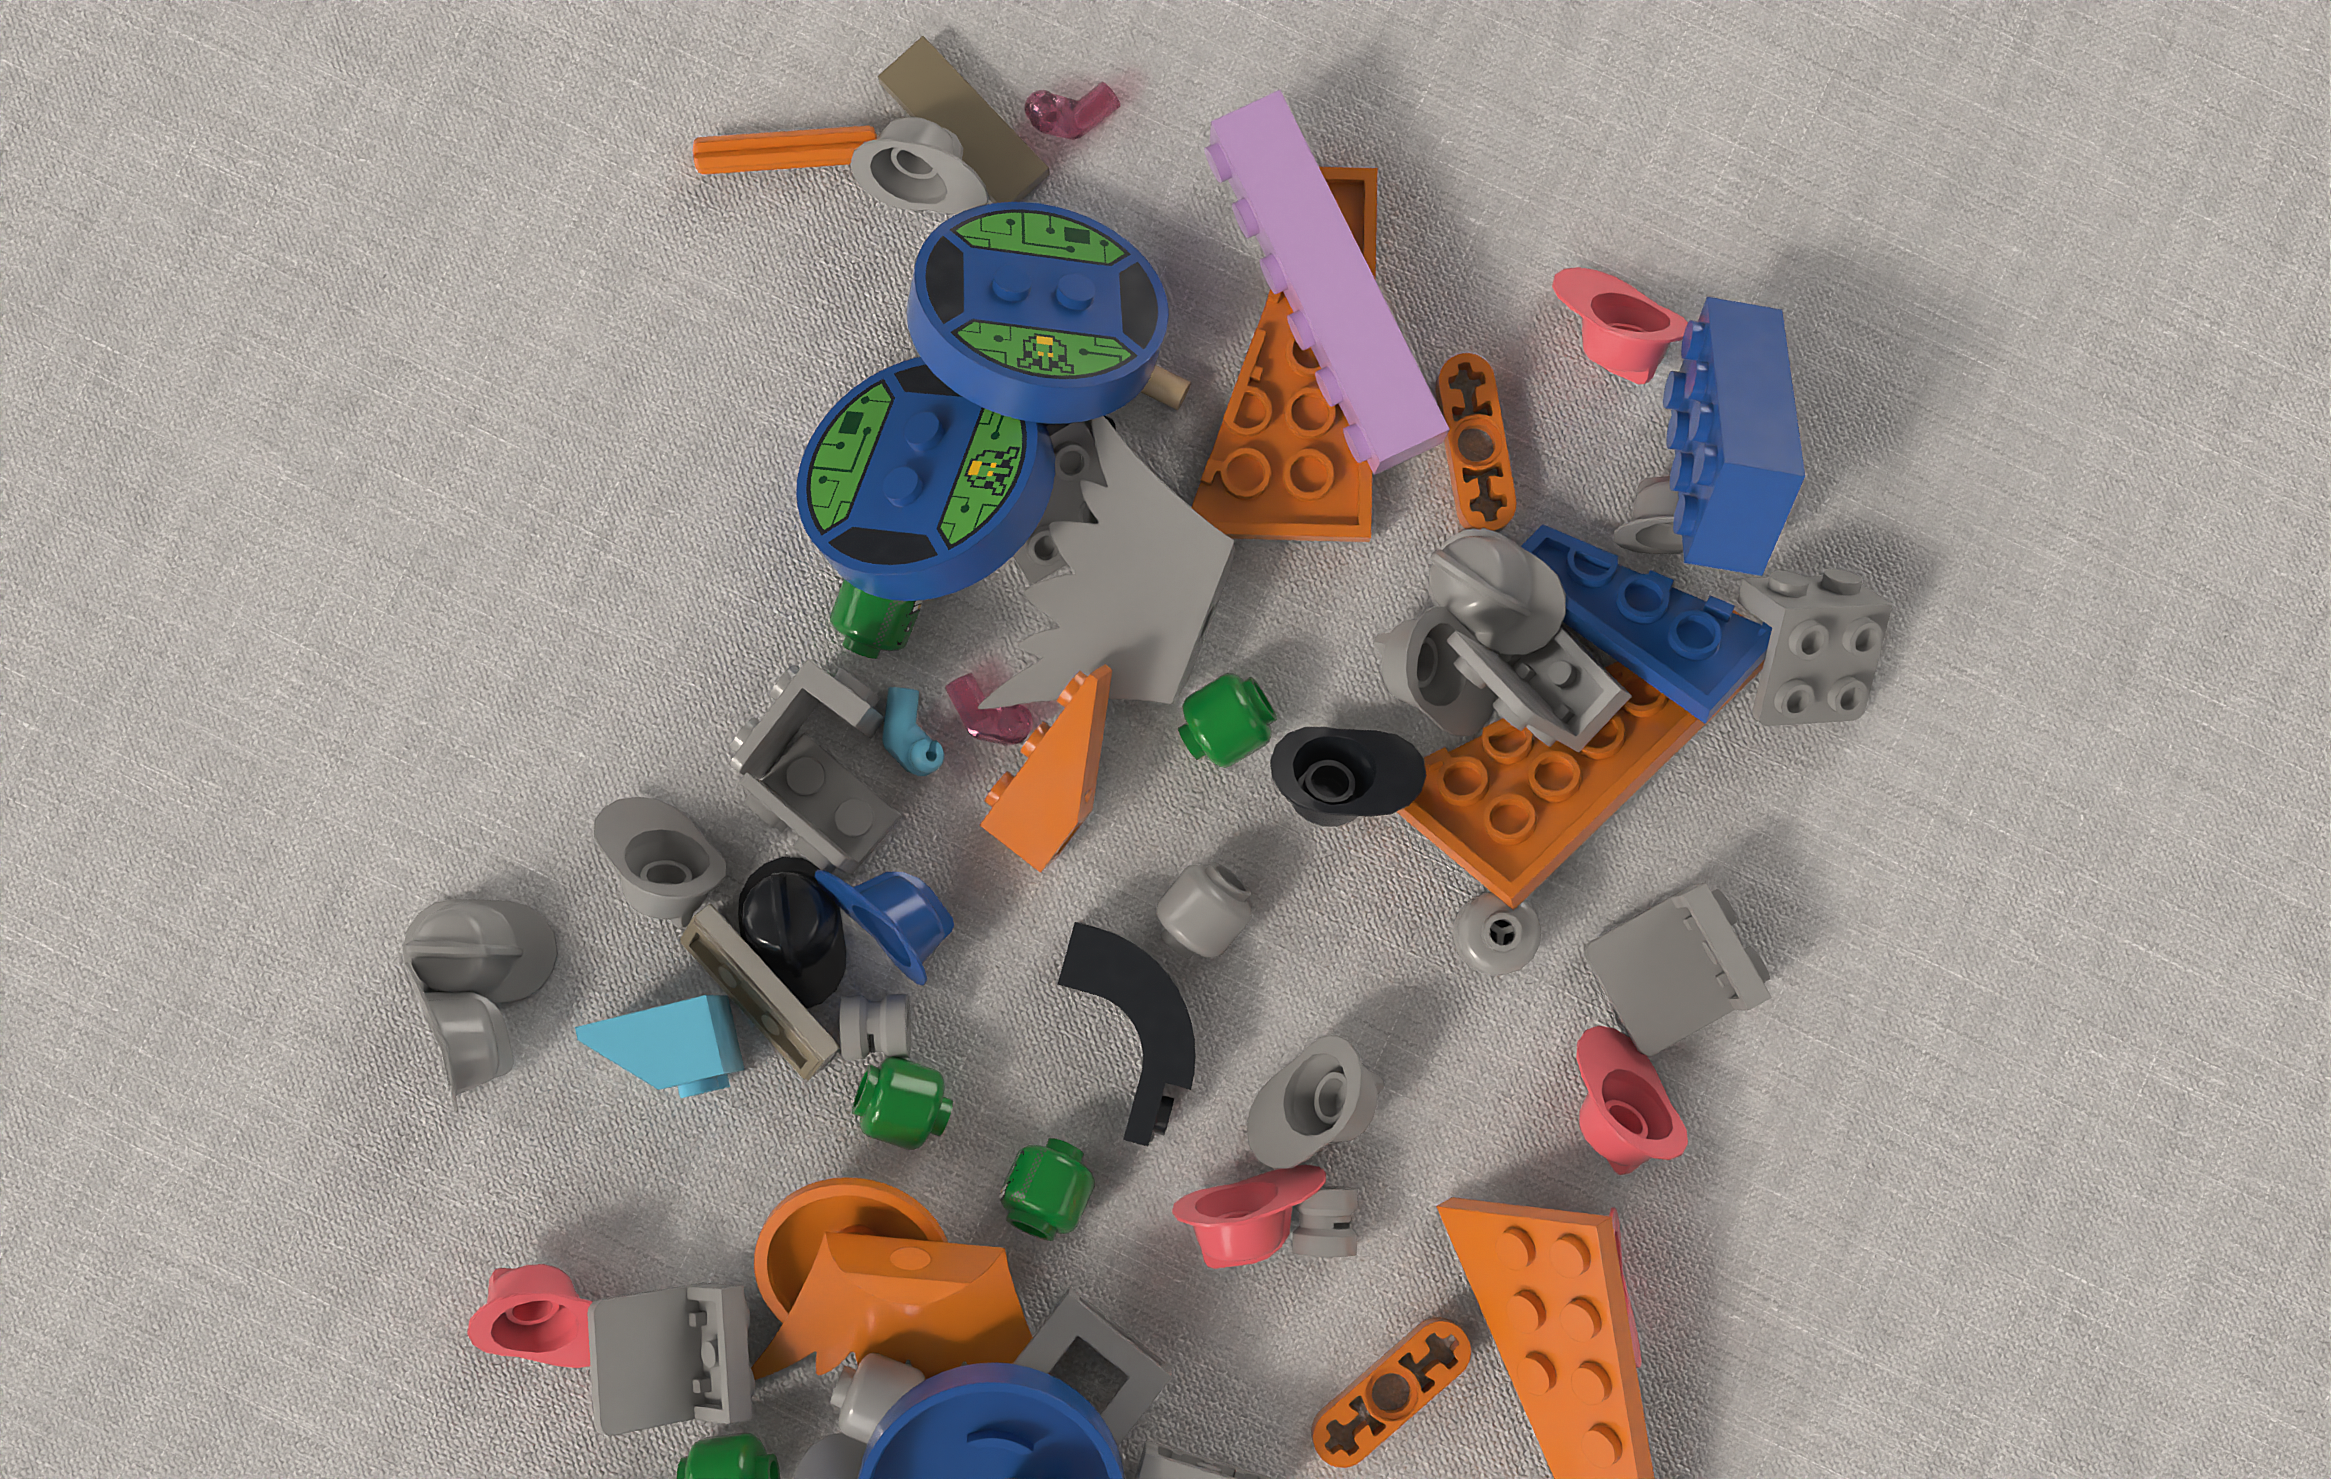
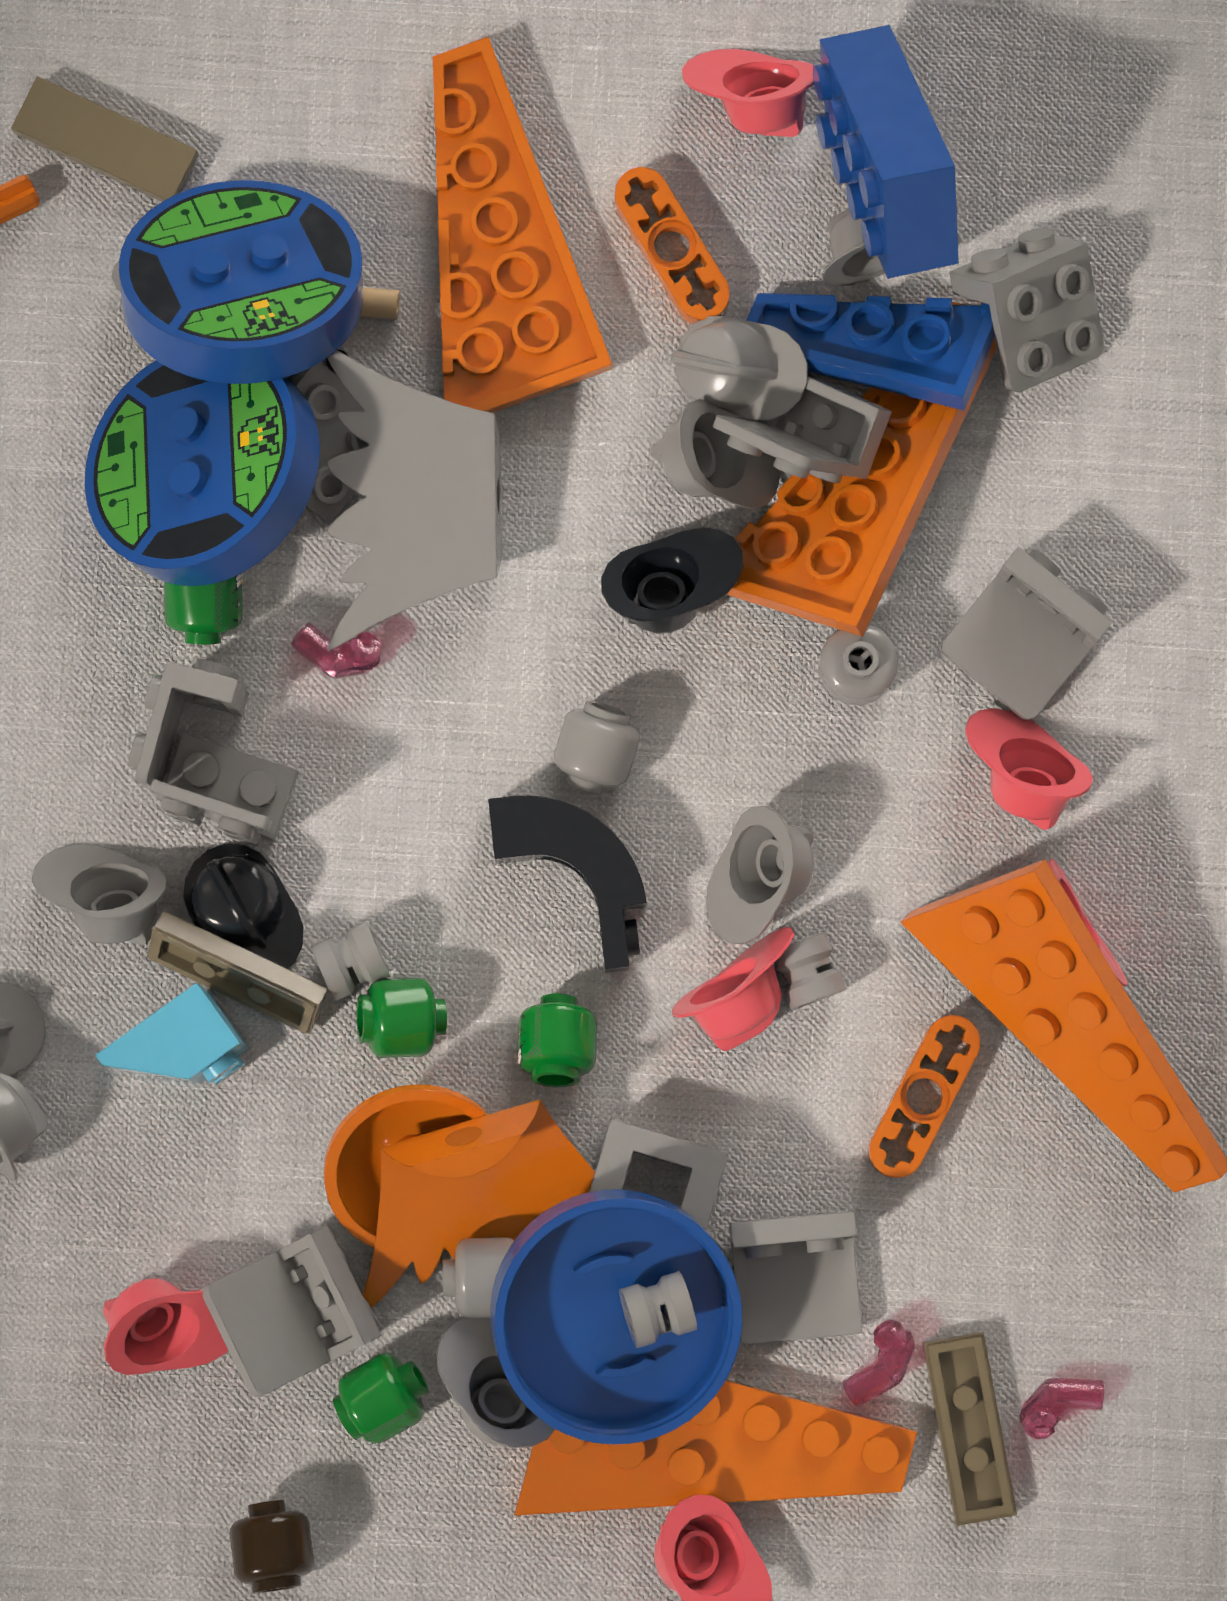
camera: 20 degrees left, 0 degrees up
(897, 913) = (328, 857): blue piece -> none
(904, 738) = (275, 703): medium azure arm -> none
(918, 168) = (83, 195): light grey piece -> none
(1057, 784) = (424, 688): orange slope -> none
(1070, 117) = (196, 97): clear pink arm -> none
(1227, 720) = (550, 573): green head -> none
(1325, 282) = (484, 157): lavender brick -> none

